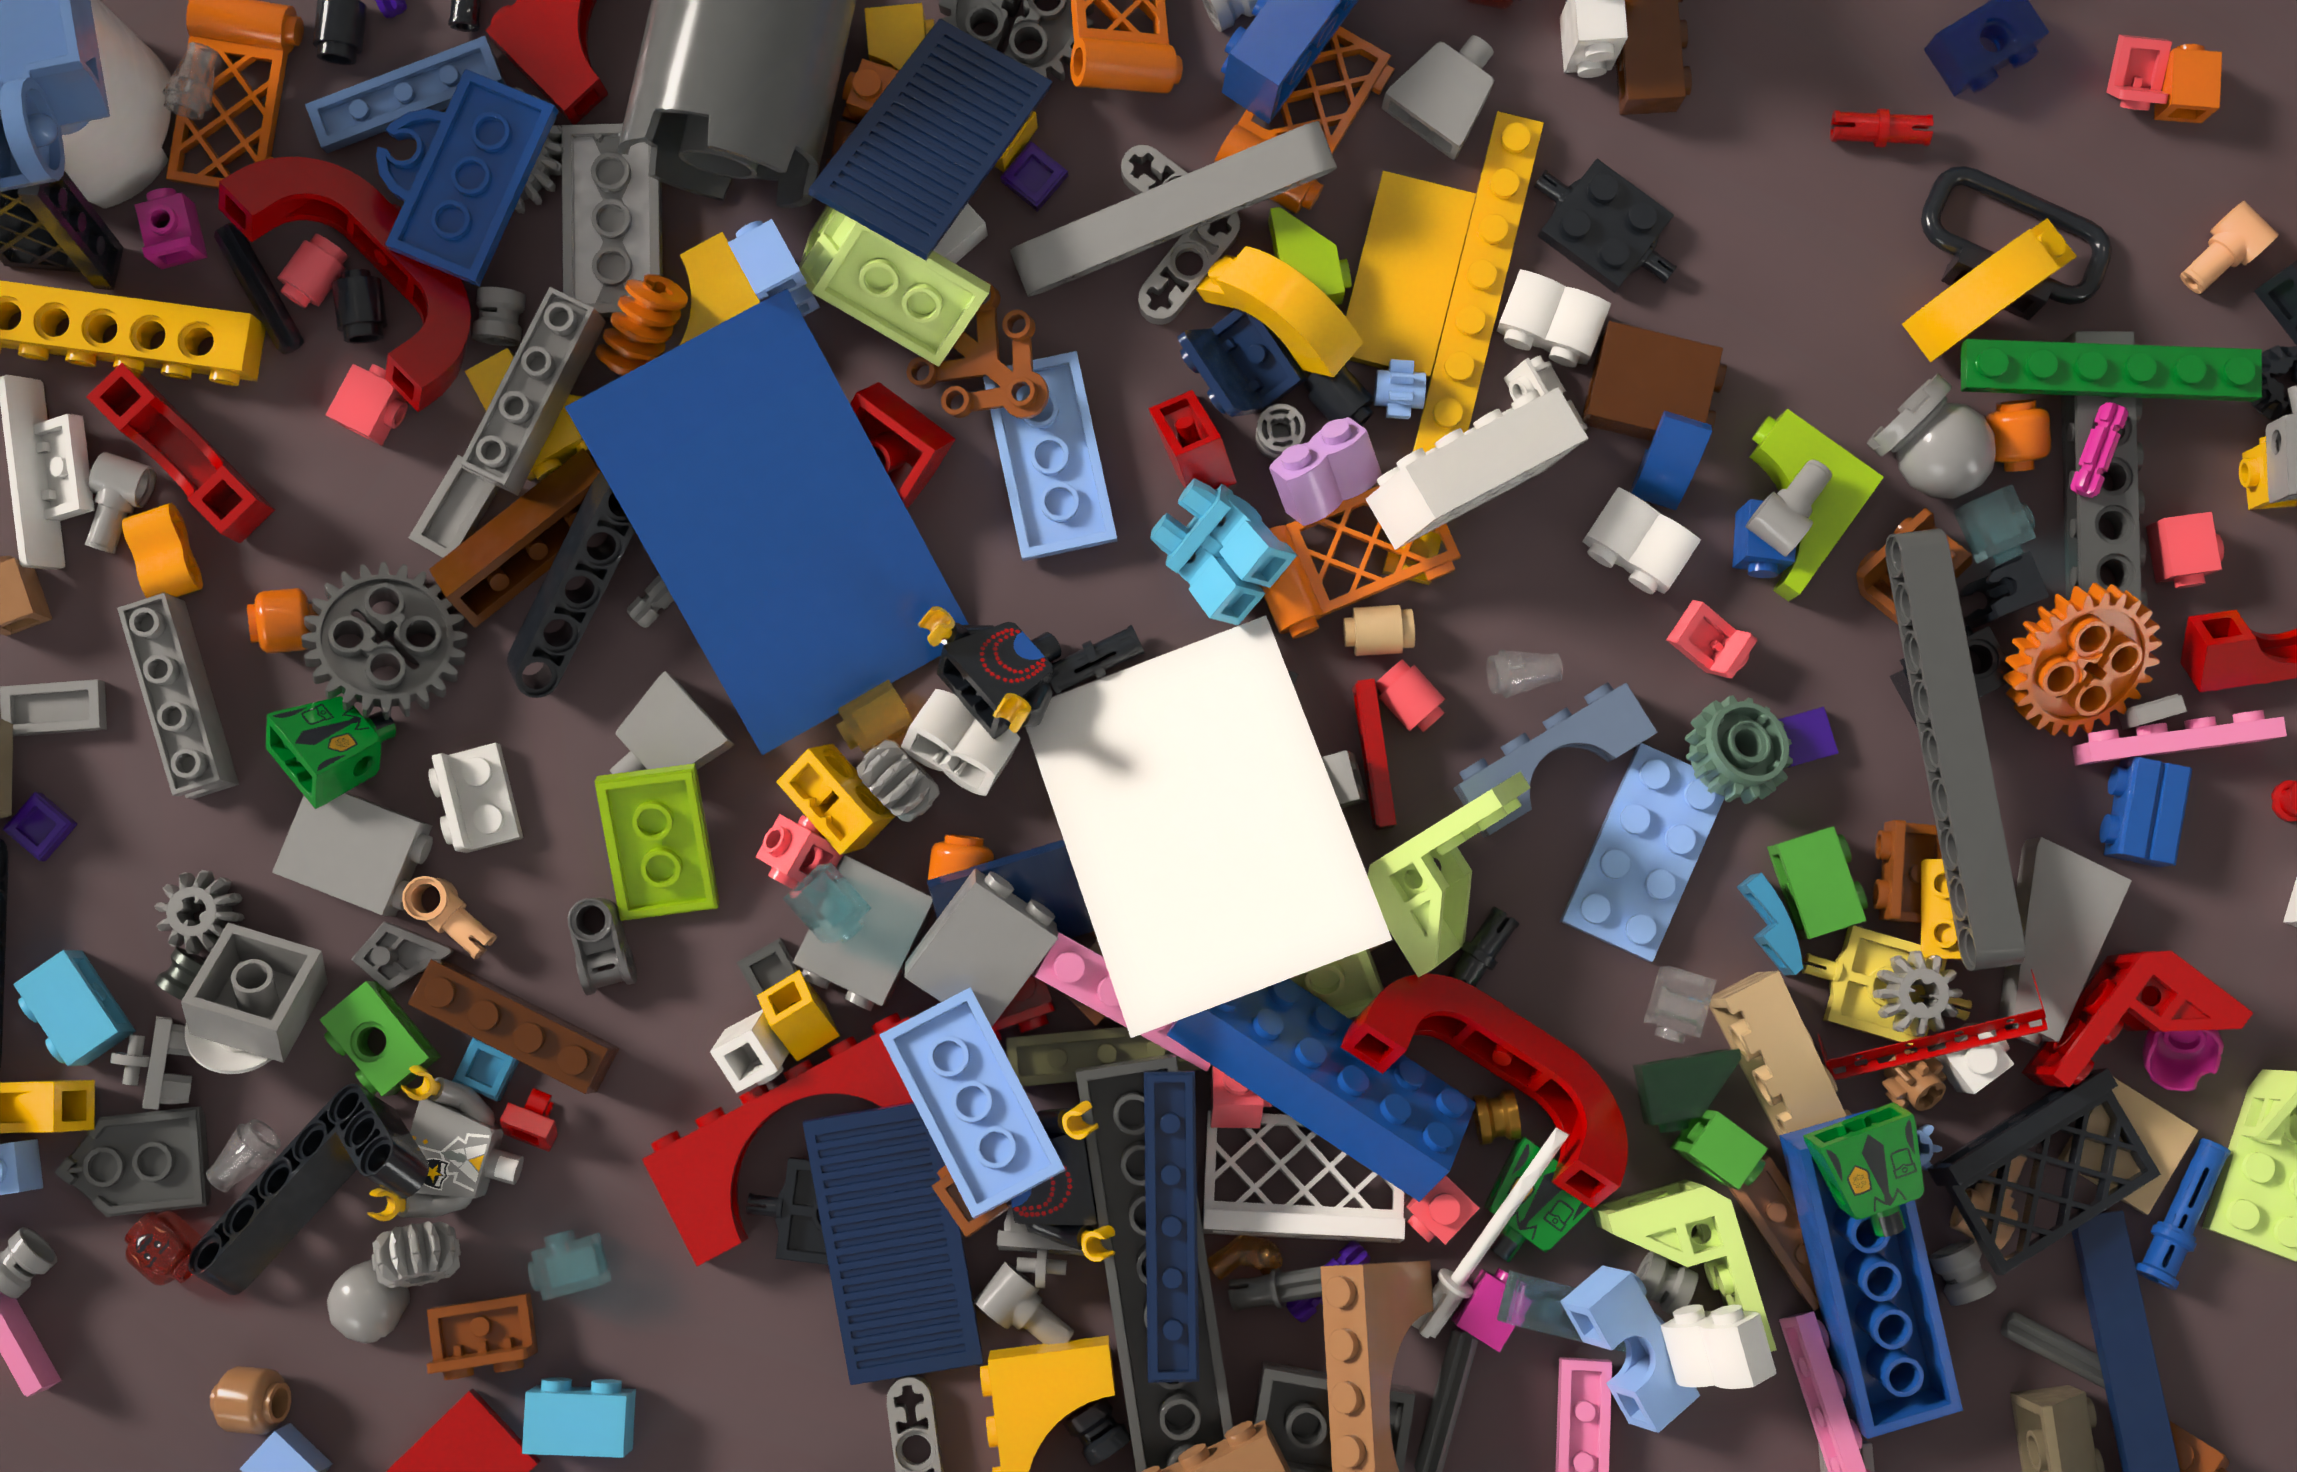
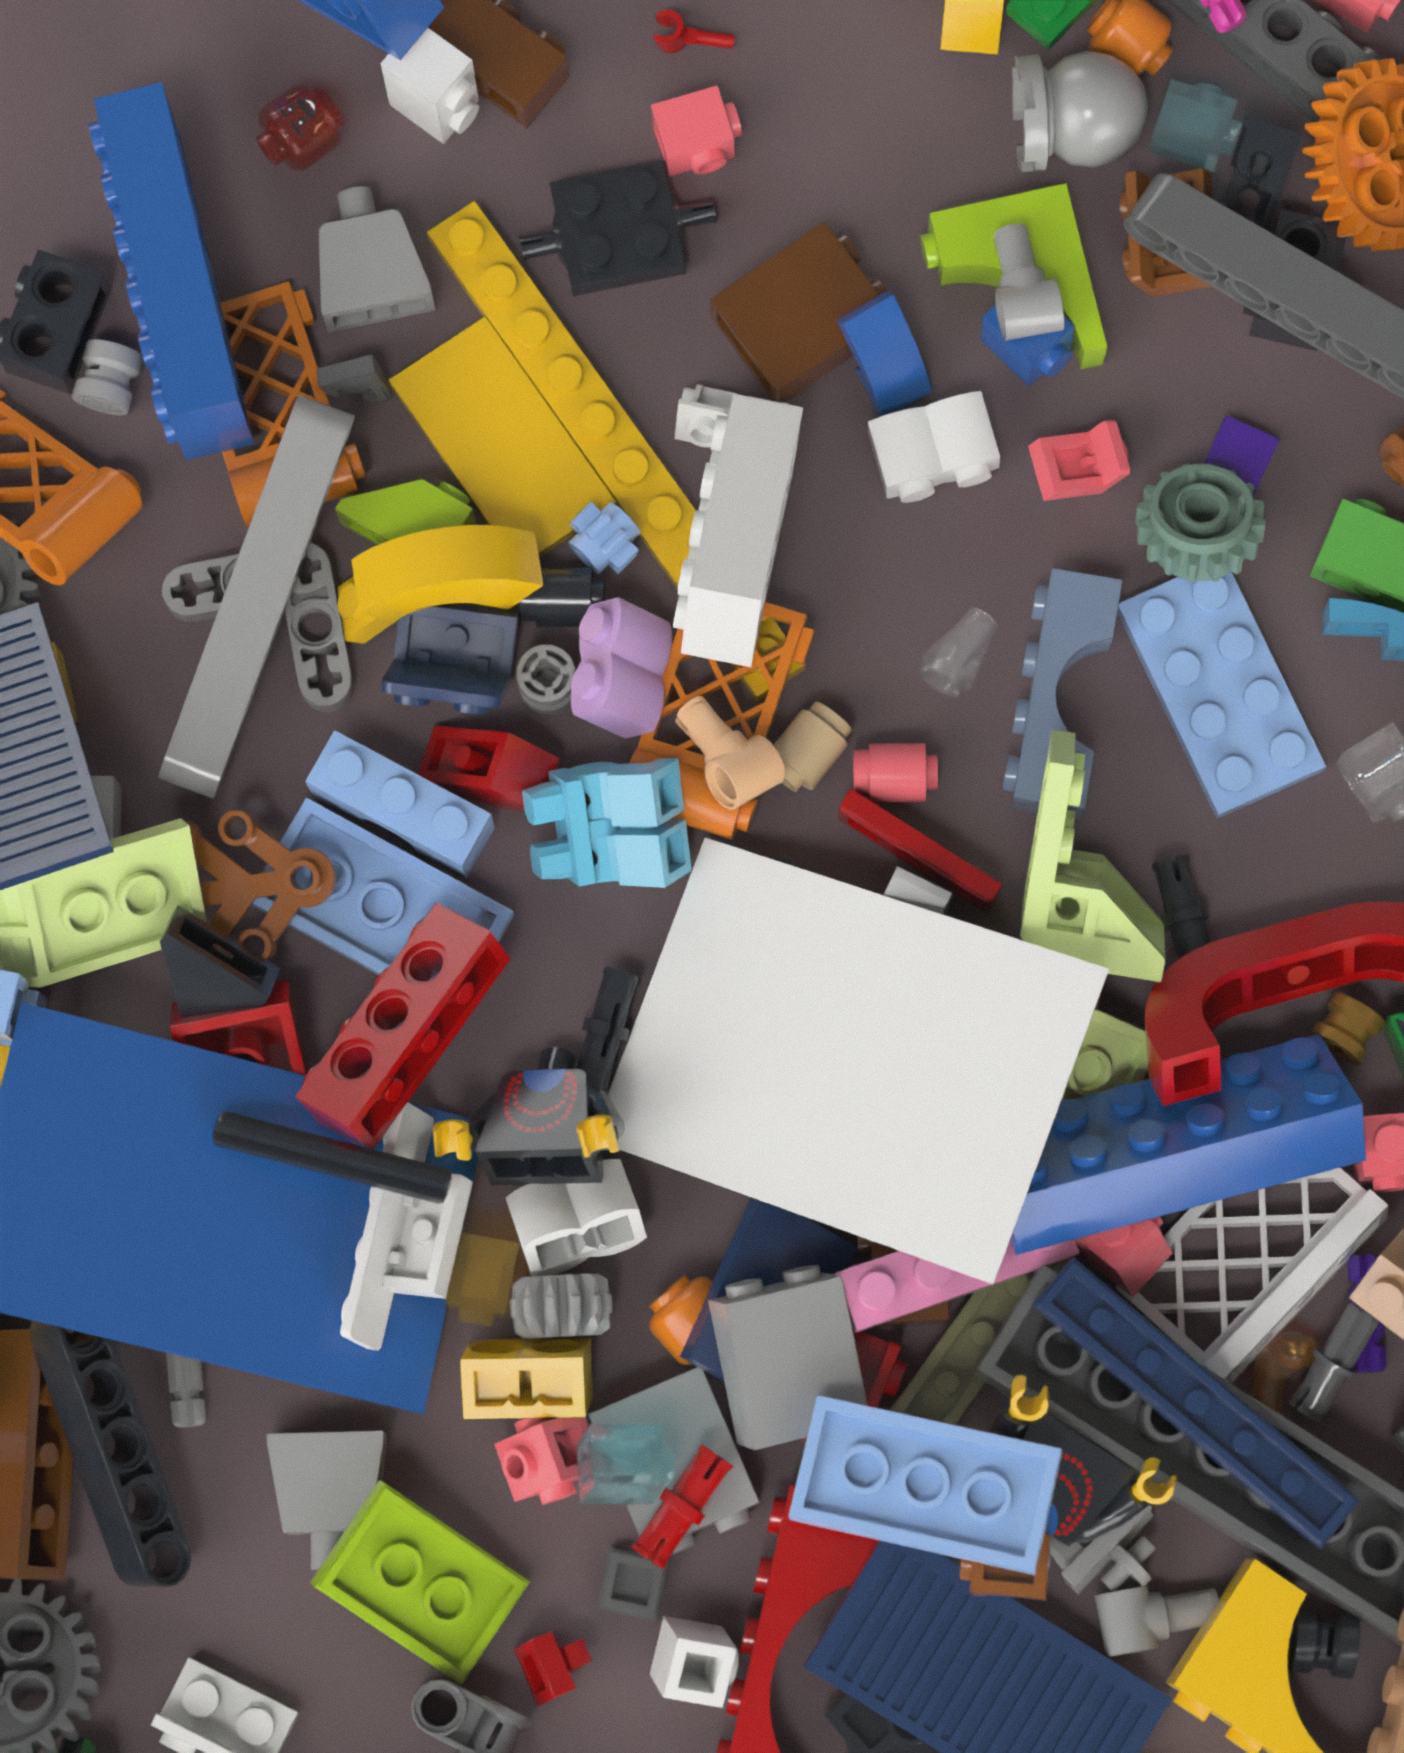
camera: 45 degrees left, 5 degrees down
(675, 964) = (549, 1668): none -> red tile
(802, 1025) = (700, 1590): yellow brick -> none
(835, 962) = (682, 1506): none -> red pin
(861, 561) = (332, 1157): none -> black axle
(861, 646) = (405, 1240): none -> white bracket
(917, 386) = (211, 968): none -> black slope
(964, 551) = (403, 1056): none -> red brick
(1034, 176) = (106, 697): dark purple tile -> none
(1123, 411) = (402, 802): none -> light blue arch
(1325, 594) = (734, 766): none -> light nougat pin
(1366, 148) = (355, 377): none -> dark grey tile
(1553, 319) = (661, 346): white brick -> none
(1710, 219) = (695, 131): none -> coral brick
(1768, 160) = (687, 35): none -> red hand

